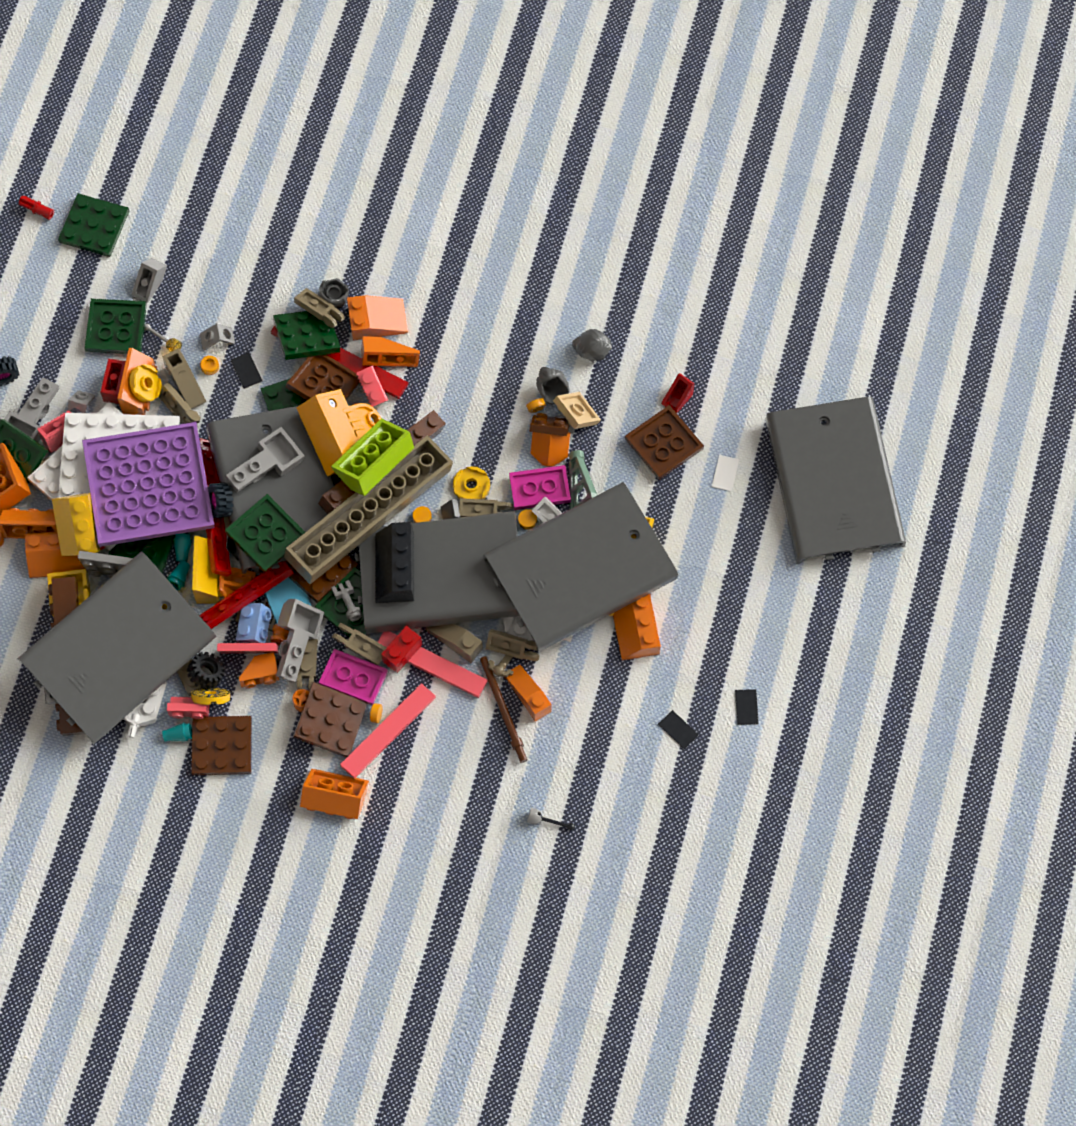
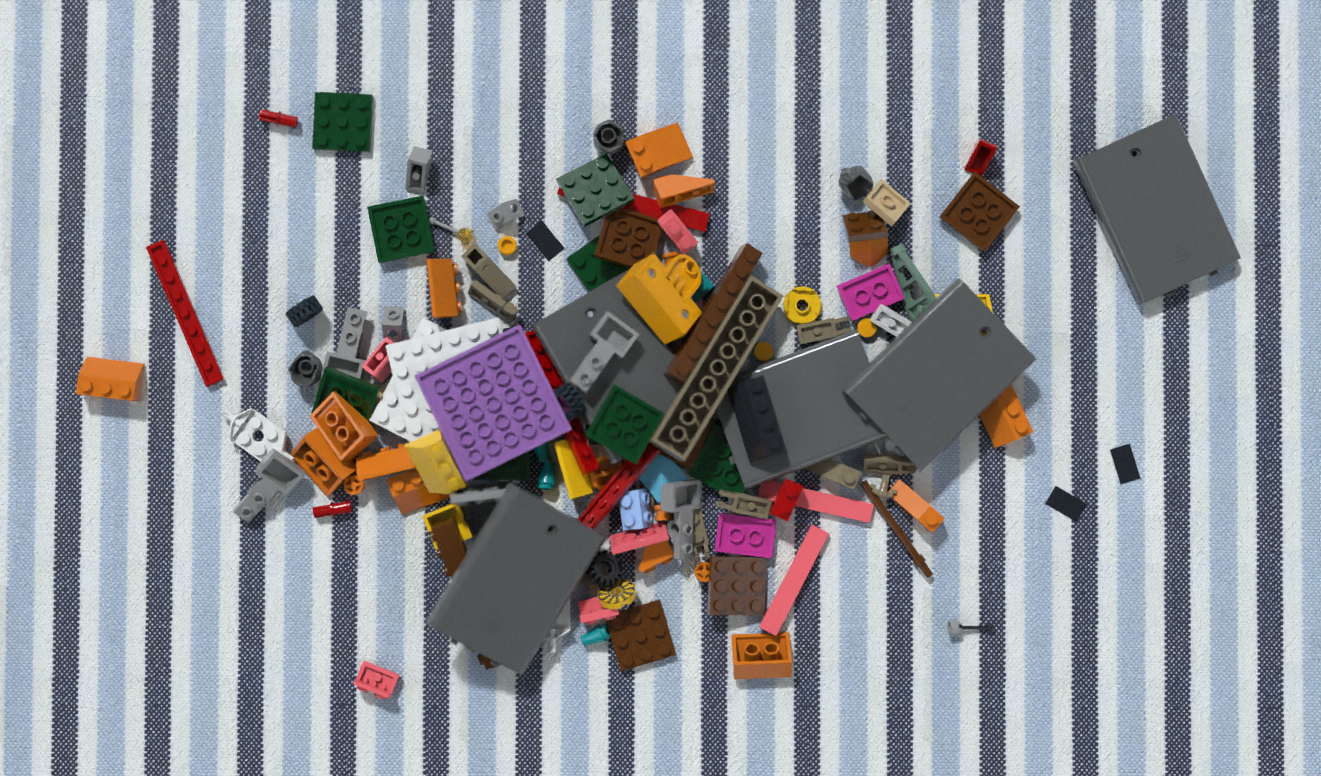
camera: 15 degrees left, 20 degrees up
(112, 380) = (419, 291): red brick -> none
(138, 386) = (445, 291): yellow tile -> none
(319, 307) = (599, 159): dark tan hinge -> none
(353, 612) = (713, 455): light grey hinge -> none
(373, 456) = (708, 318): lime slope -> none
(376, 713) = (777, 566): light orange tile -> none
(450, 510) = (790, 341): dark grey tile -> none
(536, 405) = (844, 205): light orange tile -> none
(592, 345) = (882, 126): dark grey hair -> none
(725, 472) = (1045, 226): white sticker -> none

